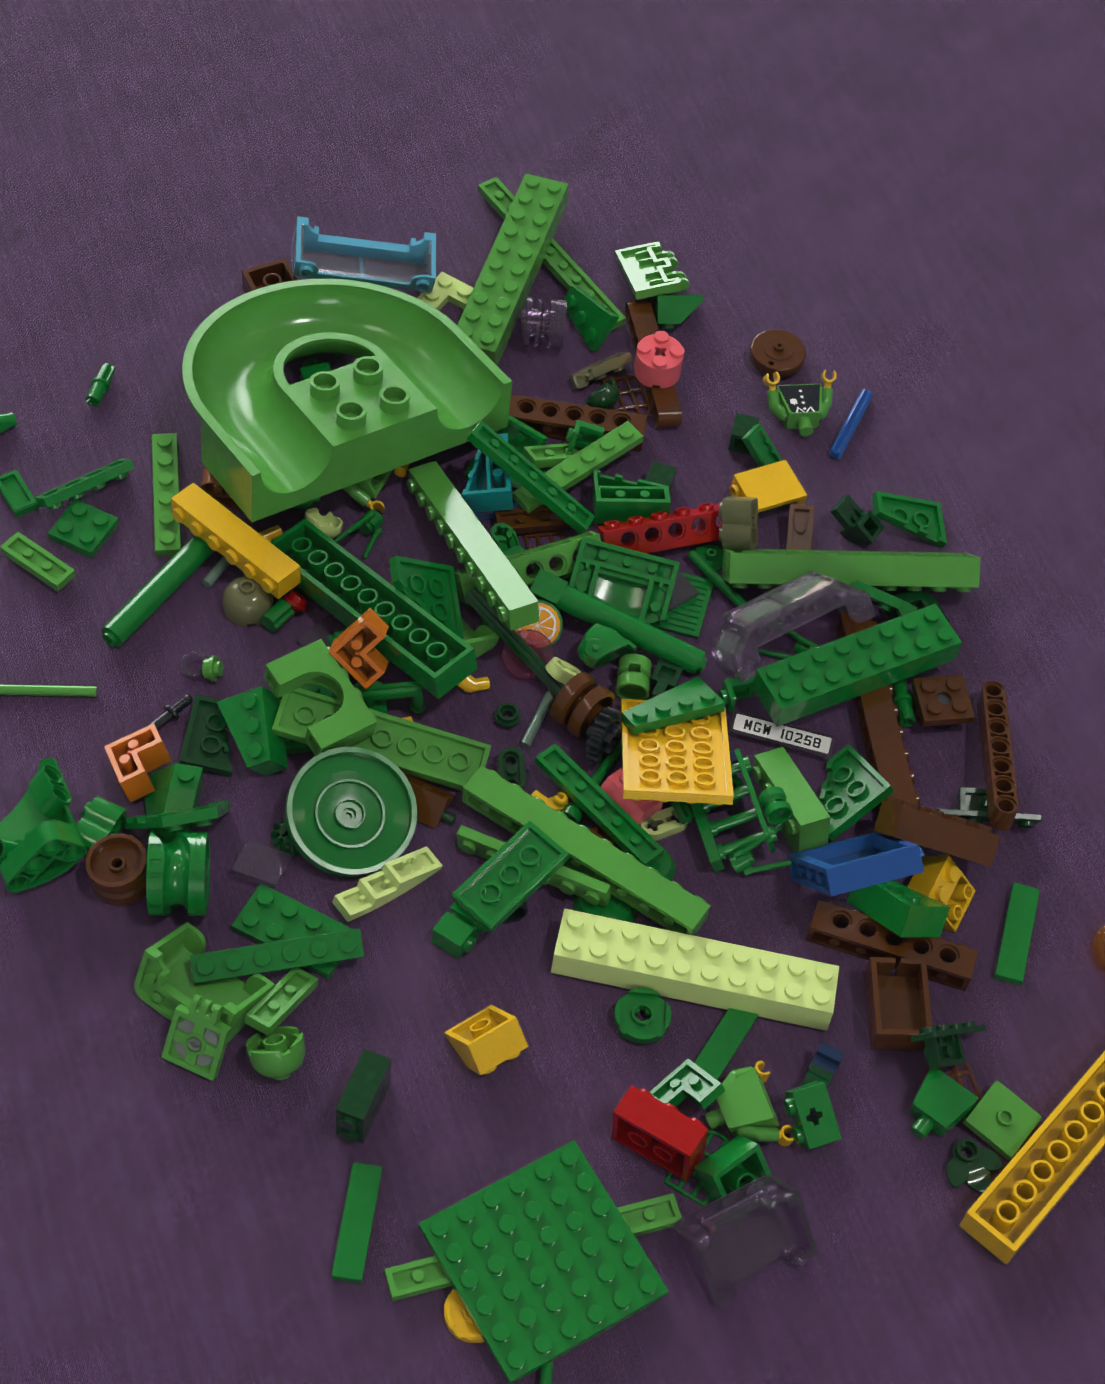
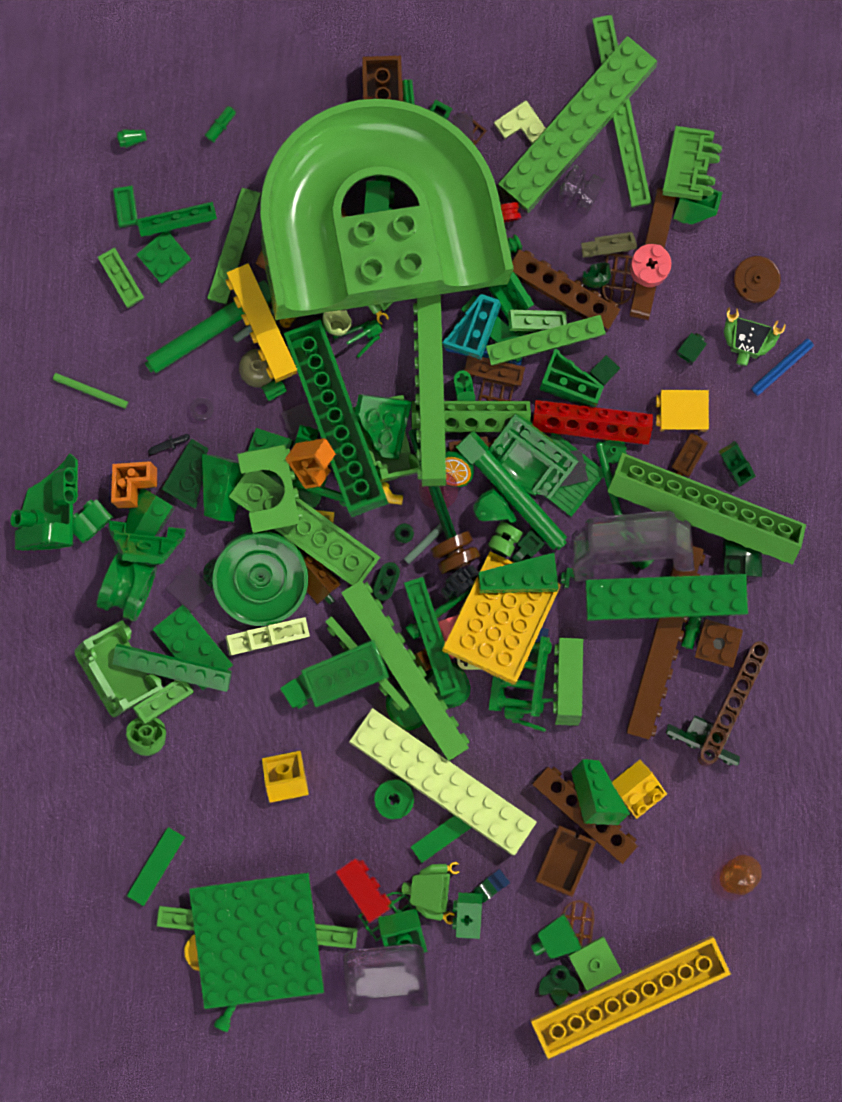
camera: 25 degrees right, 30 degrees up
(117, 869) = (83, 554): reddish brown wheel -> none
(197, 1038) = (99, 709): bright green piece -> none
(212, 668) = (212, 418): bright green plate -> none
(296, 601) = (292, 383): red plate -> none
(363, 260) = (462, 79): medium azure windscreen -> none
(363, 1096) = (187, 791): dark green brick -> none
(530, 477) = (498, 348): green plate -> none
(556, 802) = (402, 616): yellow arm -> none
(561, 670) = (457, 519): yellowish green beam -> none
(583, 434) = (562, 311): green bracket -> none
(589, 317) = (621, 203): green wing -> none
(690, 1082) = (397, 859): green plate -> none
(739, 523) = (639, 443): olive brick -> none
(761, 446) = (696, 373): green plate -> none
(775, 805) = (548, 691): green wheel -> none
(791, 737) = (599, 630): tile -> none
(851, 790) = (614, 689): green plate -> none
(855, 863) = (579, 778): blue window -> none
(884, 600) = (713, 550): green hinge -> none
(912, 515) = (782, 474): green wing -> none
(937, 831) = (651, 754): reddish brown brick -> none
(944, 1043) = (580, 906): dark green bracket -> none
(1016, 934) = (677, 837): green tile -> none

